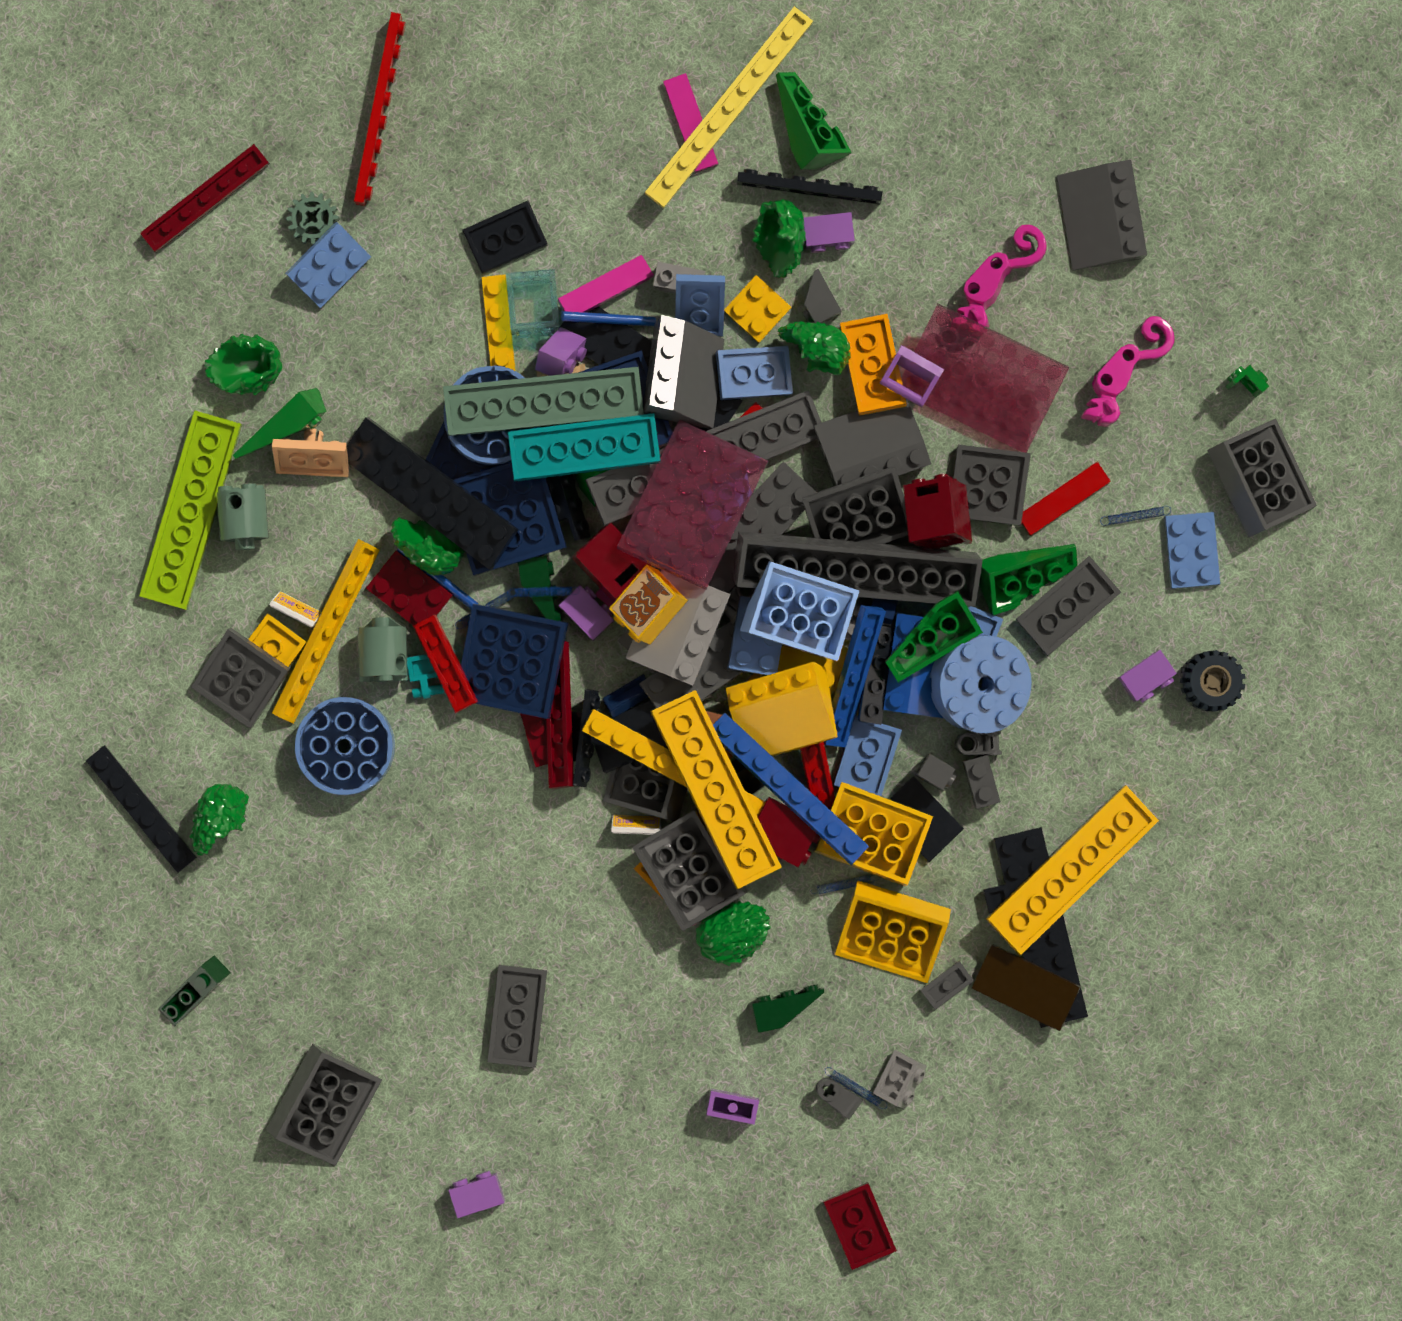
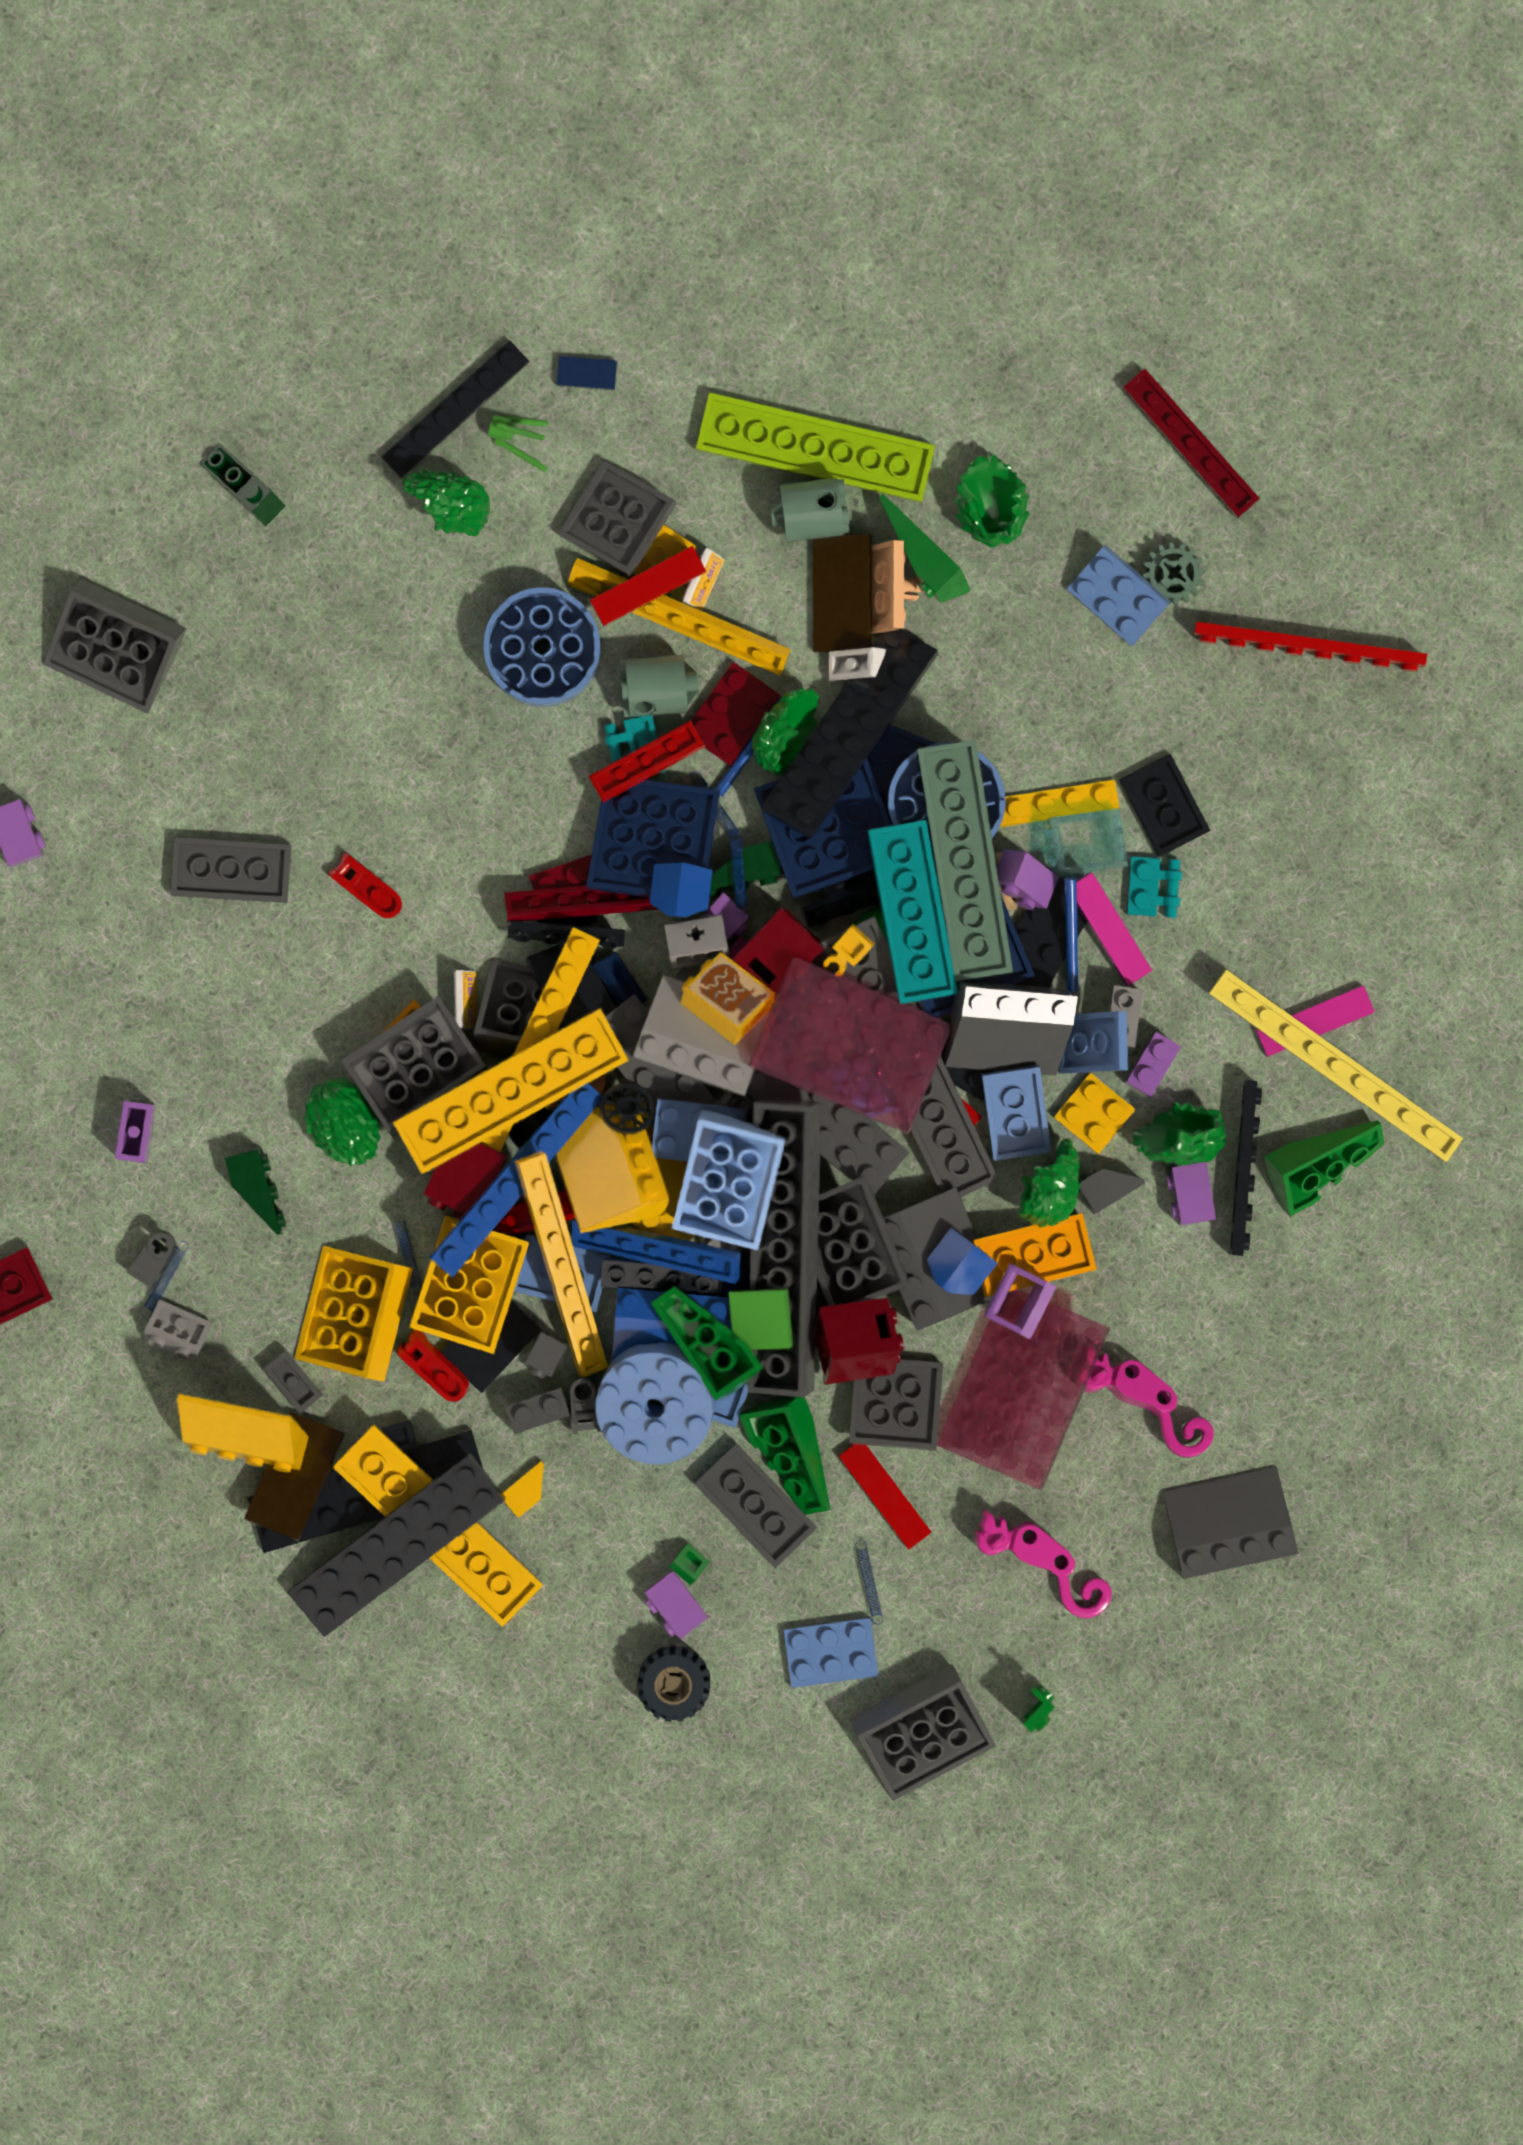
camera: 85 degrees right, 0 degrees up
(117, 697) = (587, 373): none -> dark blue tile
(159, 768) = (506, 427): none -> bright green plant
(298, 654) = (648, 586): none -> red tile
(314, 494) = (842, 593): none -> dark brown tile
(373, 485) = (855, 663): none -> white slope
(538, 902) = (367, 888): none -> red plate
(554, 639) = (680, 889): none -> blue slope
(572, 257) = (1144, 887): none -> teal plate
(606, 638) = (686, 951): none -> light grey brick
(611, 500) = (850, 948): none -> yellow plate
(720, 258) = (1152, 1064): none -> medium lavender brick
(735, 693) = (627, 1108): none -> black wheel
(861, 755) = (561, 1264): none -> yellow plate
(878, 425) = (959, 1264): none -> blue slope
(915, 590) = (762, 1317): none -> bright green tile
(941, 867) = (433, 1367): none -> red plate
(990, 1029) = (241, 1433): none -> yellow slope
(1047, 796) = (525, 1491): none -> yellow tile
(1087, 904) = (396, 1544): none -> black plate
(1114, 663) = (689, 1564): none -> green plate

